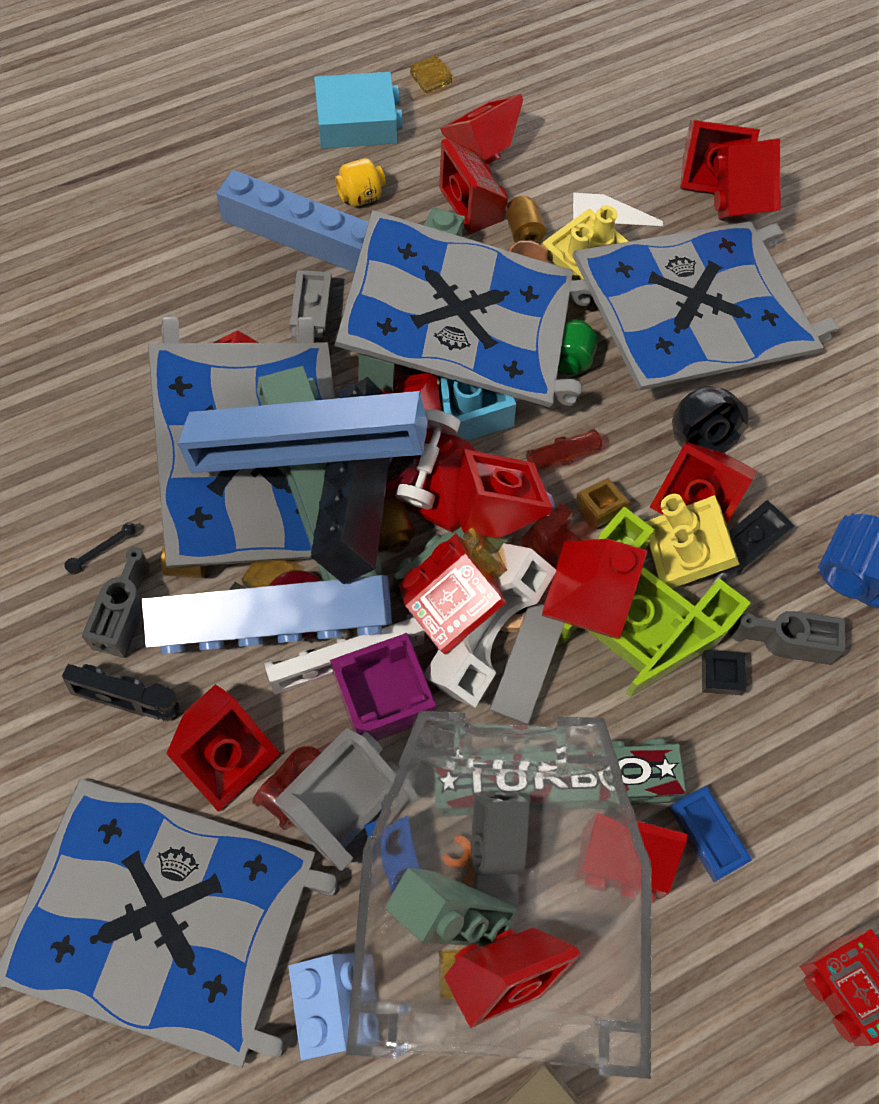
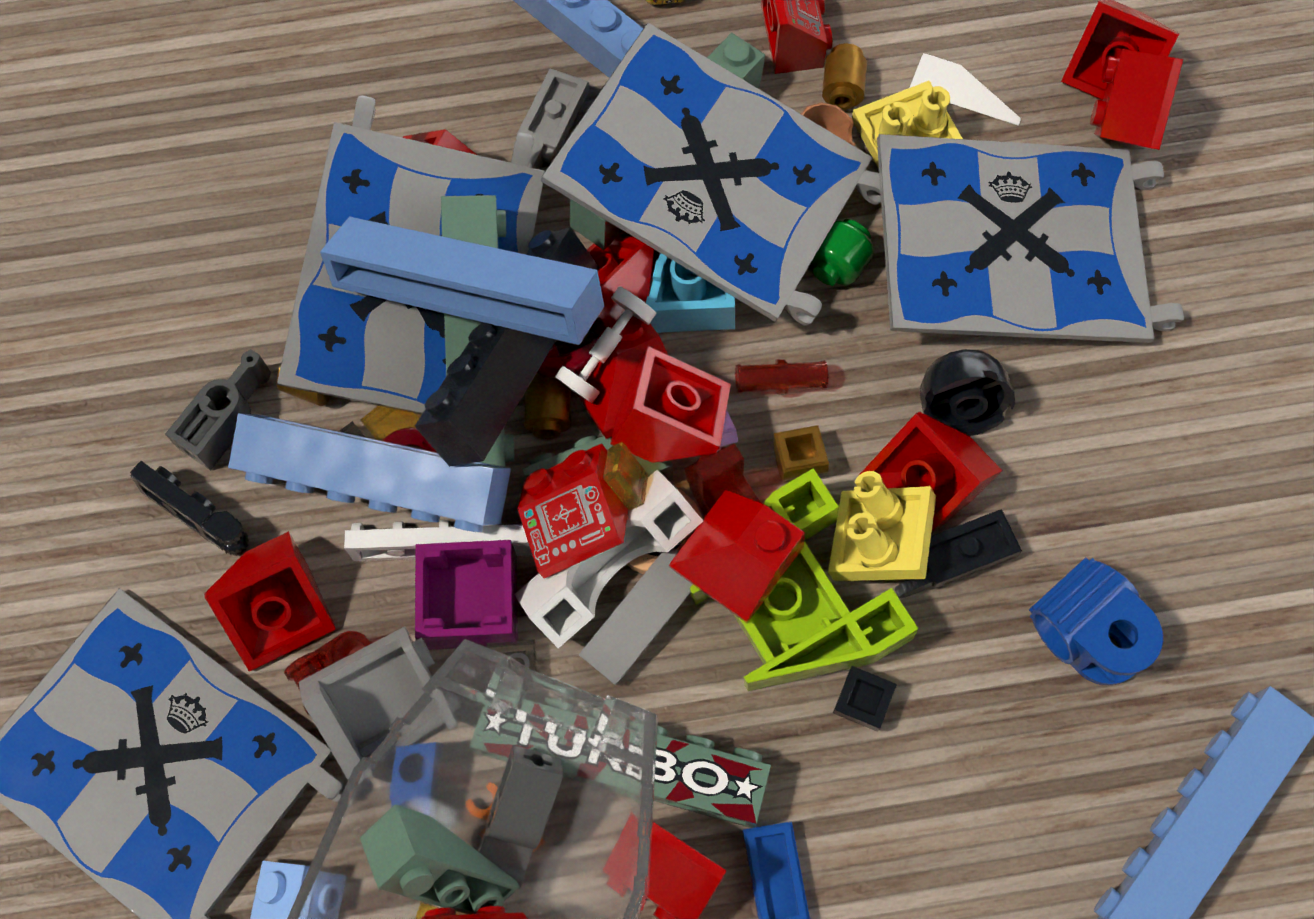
camera: 25 degrees right, 5 degrees up
(74, 565) = (191, 350): black hinge -> none
(812, 635) = (988, 694): dark grey piece -> none

